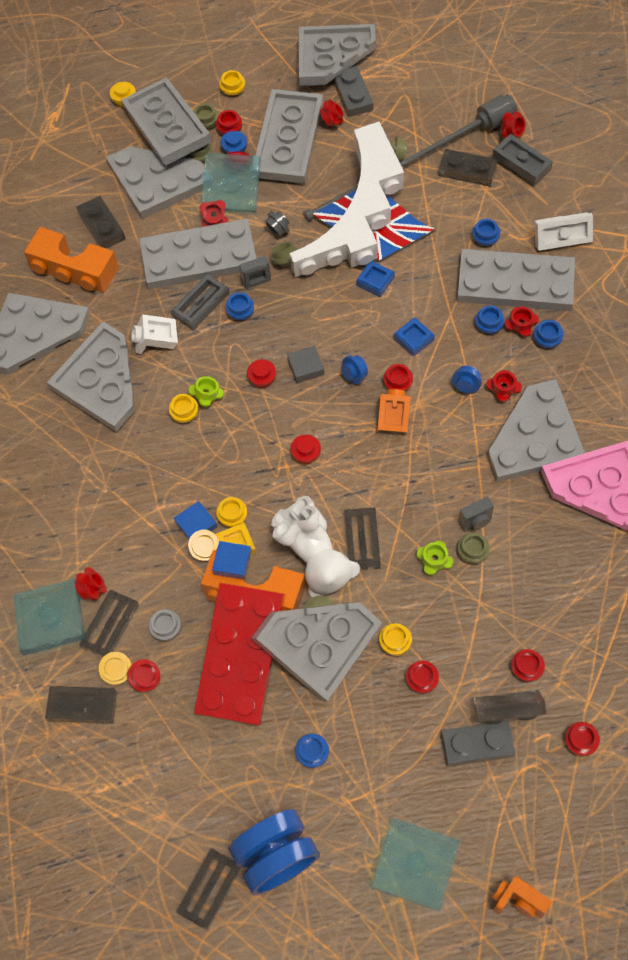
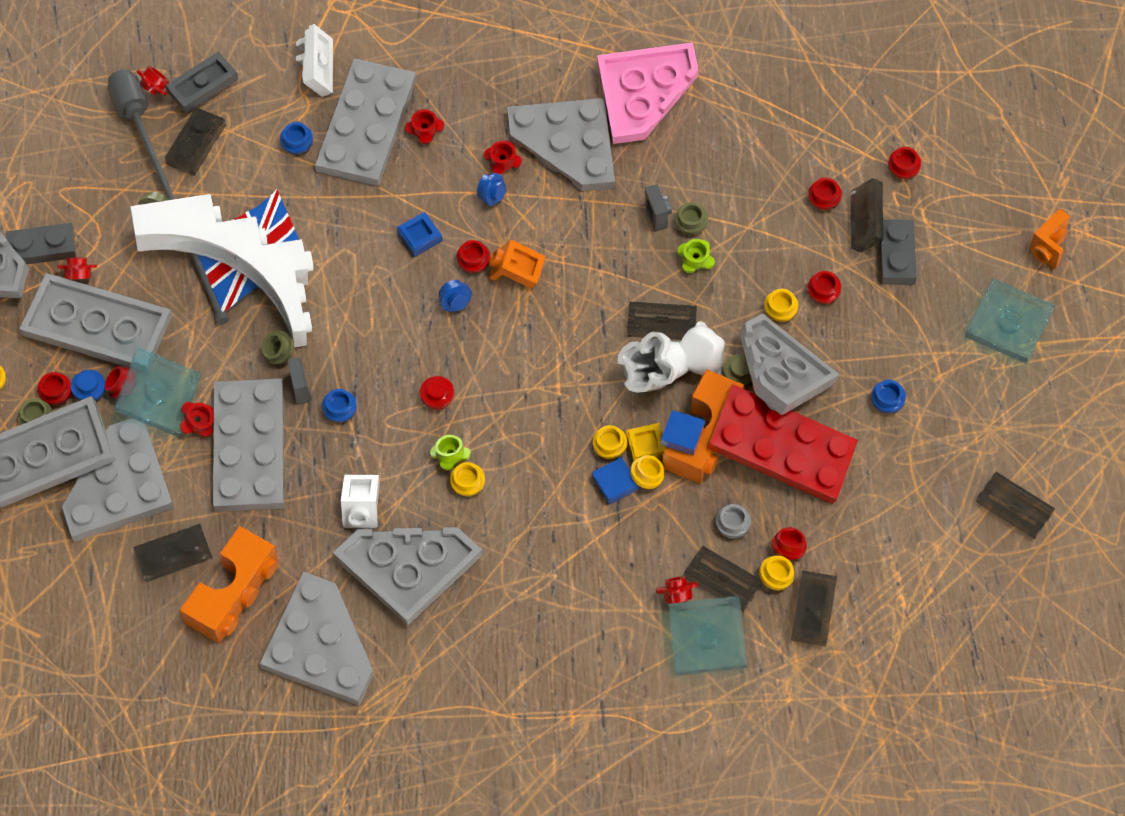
camera: 85 degrees left, 0 degrees up
(204, 304) = (311, 459): dark grey tile -> none
(274, 851) = (994, 429): blue wheel -> none
(277, 223) = (230, 349): dark grey plate -> none
(305, 364) = (433, 347): dark grey tile -> none
(305, 449) = (545, 359): red plate -> none
(375, 278) = (332, 261): blue tile -> none
(489, 319) = (416, 155): blue plate -> none
(548, 334) = (447, 103): blue plate -> none

